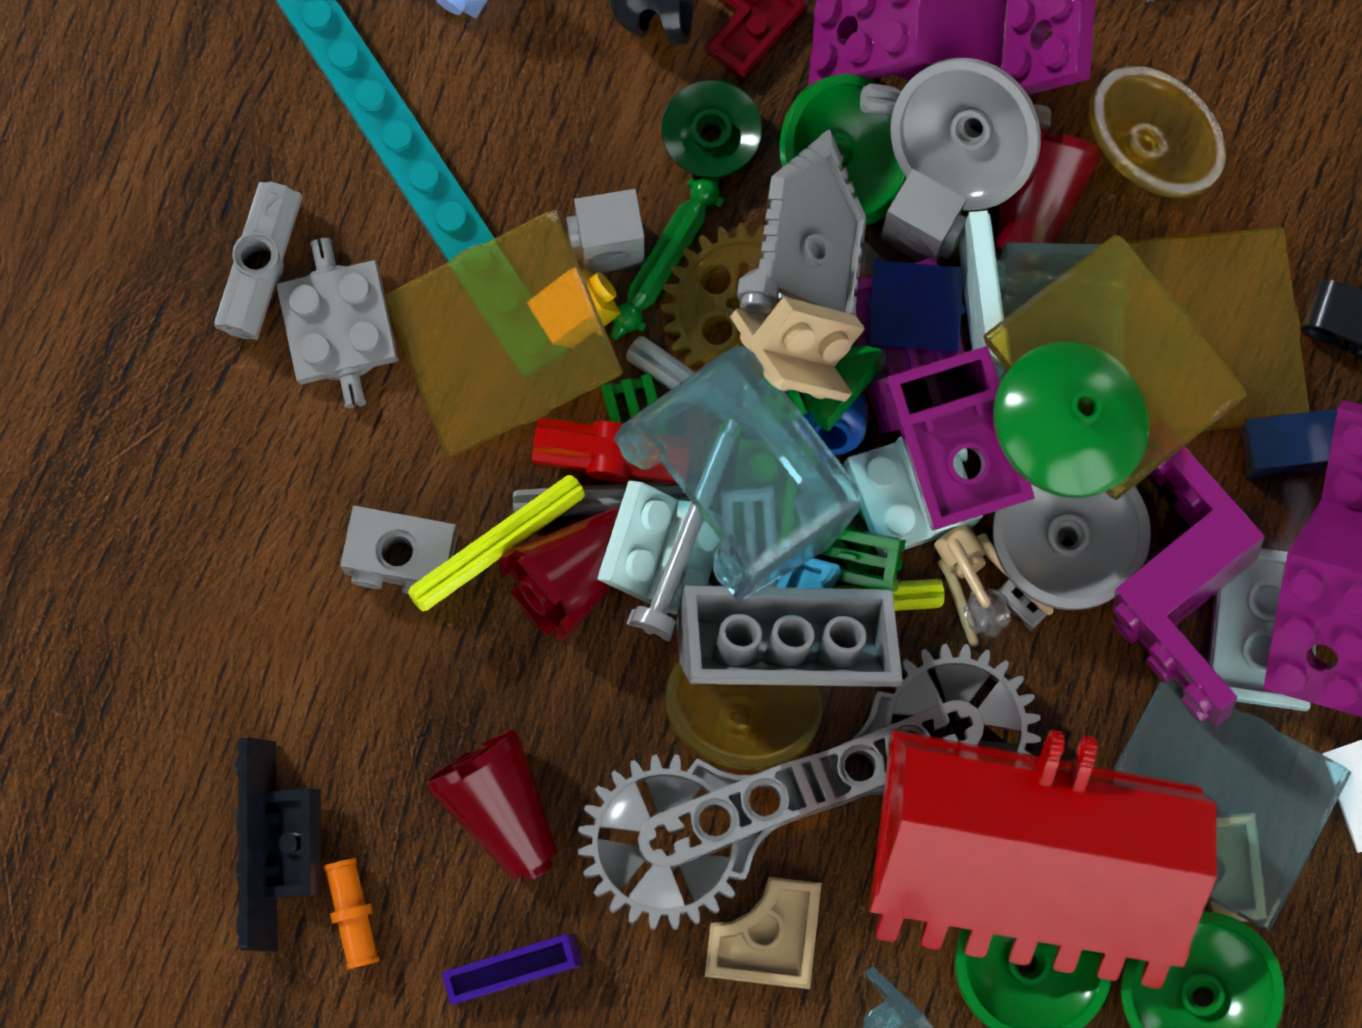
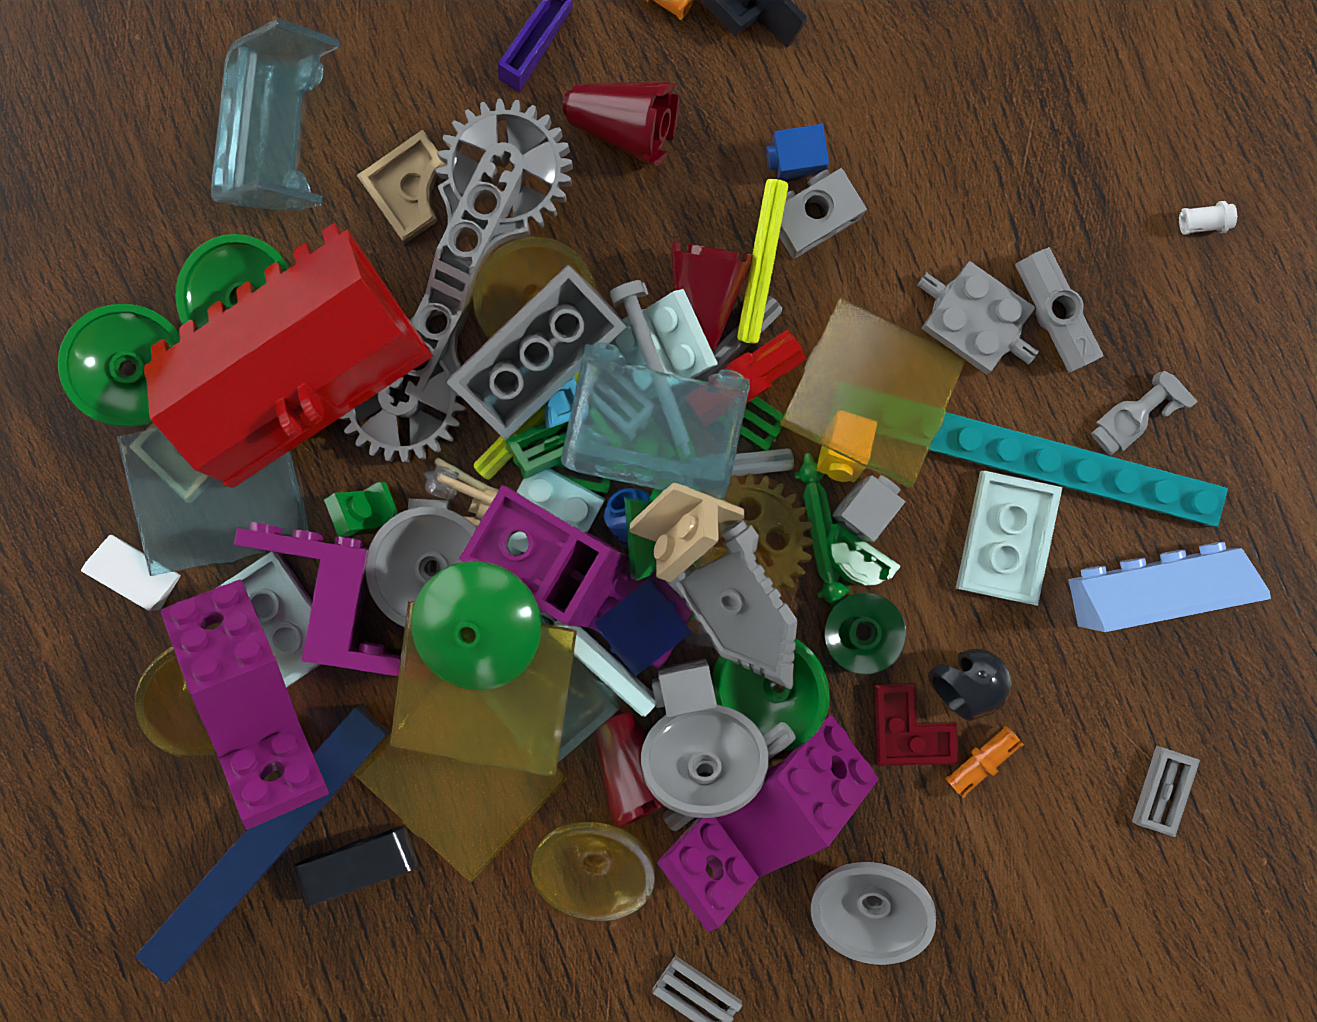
camera: 140 degrees right, 10 degrees up
(39, 223) = (1218, 217): none -> white pin
(284, 109) = (1130, 418): none -> light grey piece
(364, 623) = (798, 152): none -> blue brick
(497, 101) = (1009, 537): none -> light aqua tile
(659, 198) = (856, 559): none -> tile
(1087, 651) = (361, 510): none -> green bracket

